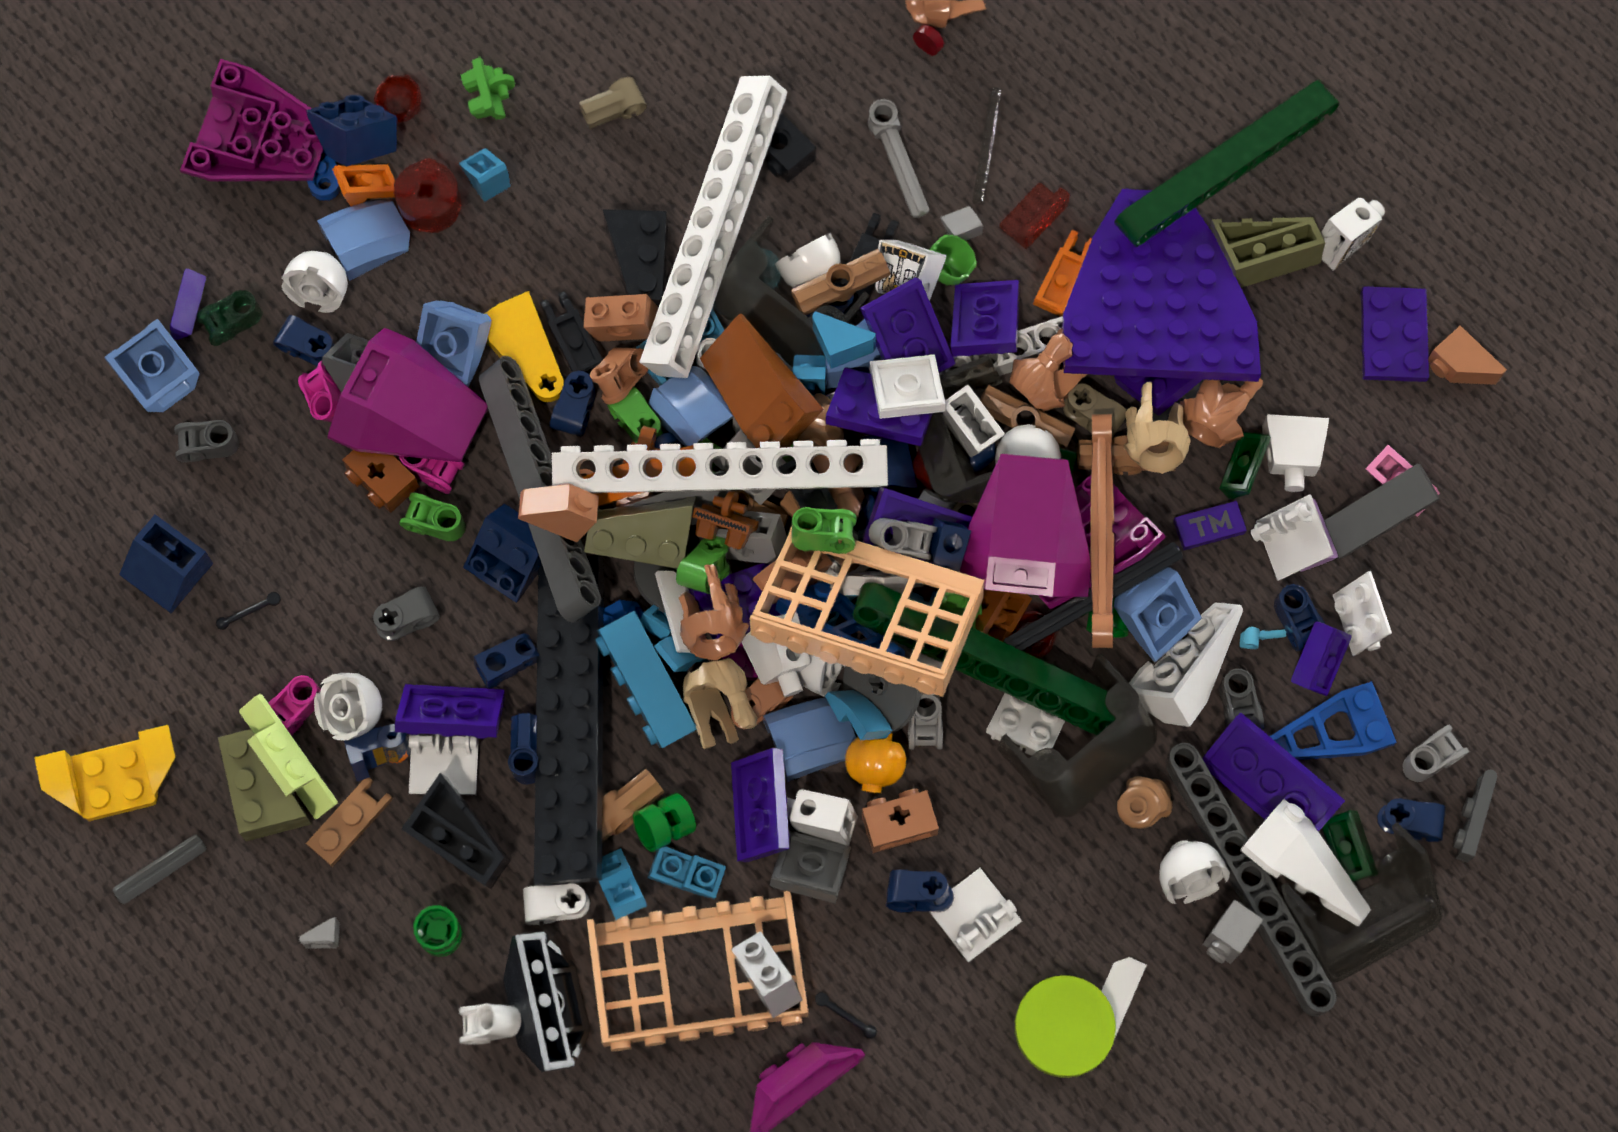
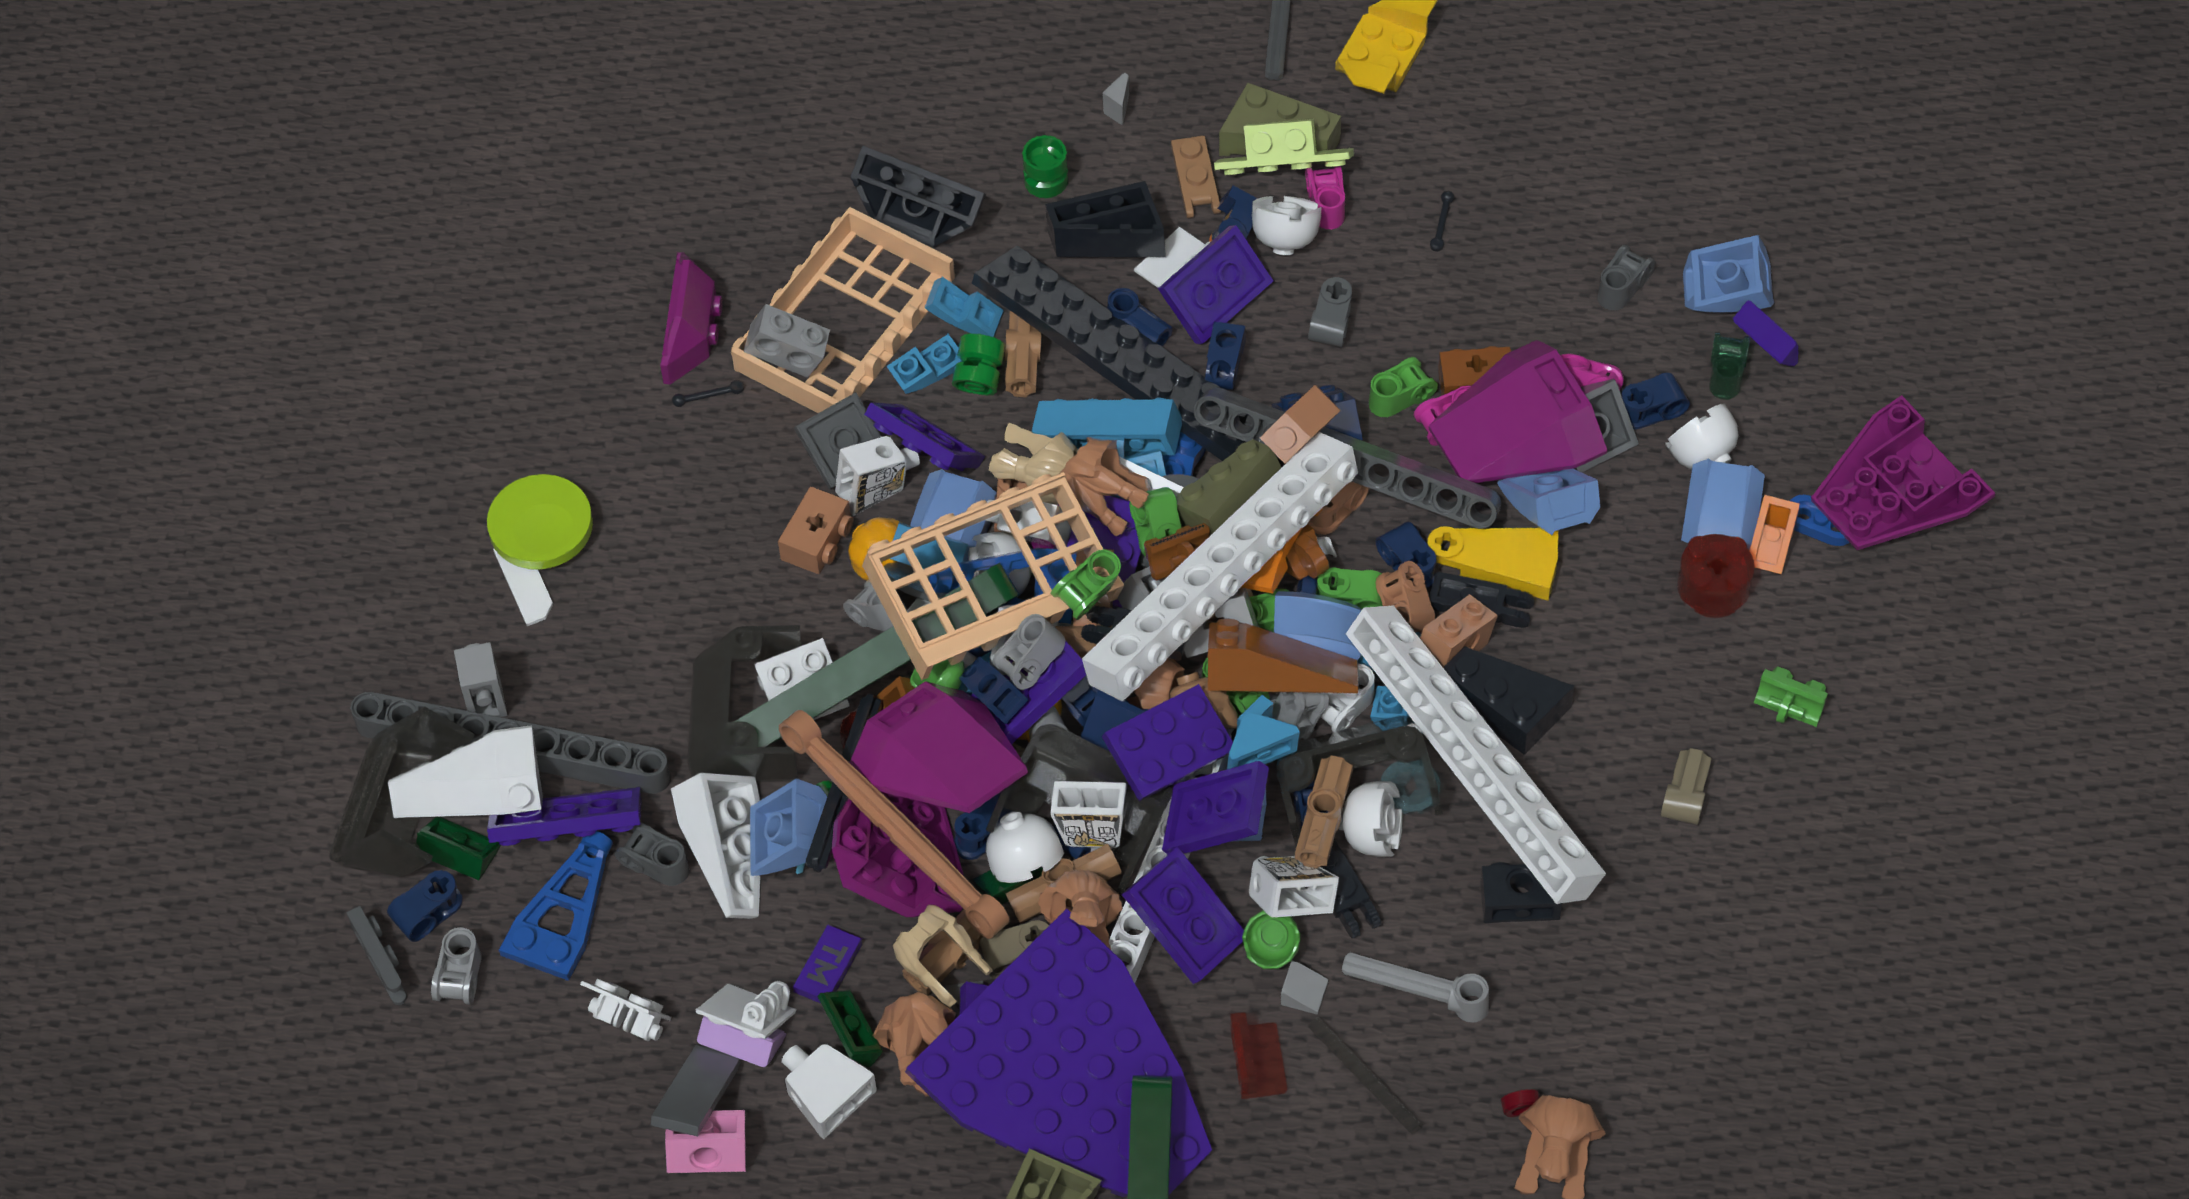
camera: 135 degrees right, 15 degrees down
(164, 564) = (1534, 186): dark blue slope -> none
(354, 129) = (1833, 553): dark blue slope -> none
(399, 96) = (1850, 618): clear red hair -> none
(486, 174) = (1704, 638): dark azure slope -> none
(488, 1023) = (942, 152): white piece -> none
(549, 905) = (990, 247): white piece -> none
(907, 386) = (1164, 763): white tile -> none
(917, 891) = (745, 500): dark blue piece -> none
(977, 915) = (690, 532): white hinge -> none
(1061, 277) = (1176, 1028): orange hinge -> none
(1144, 802) = (648, 712): medium nougat head -> none
(1191, 871) = (561, 698): white cylinder -> none
(1250, 637) = (700, 917): medium azure hand -> none
(1299, 619) = (670, 962): dark blue piece -> none
(1321, 658) = (623, 944): dark purple slope -> none

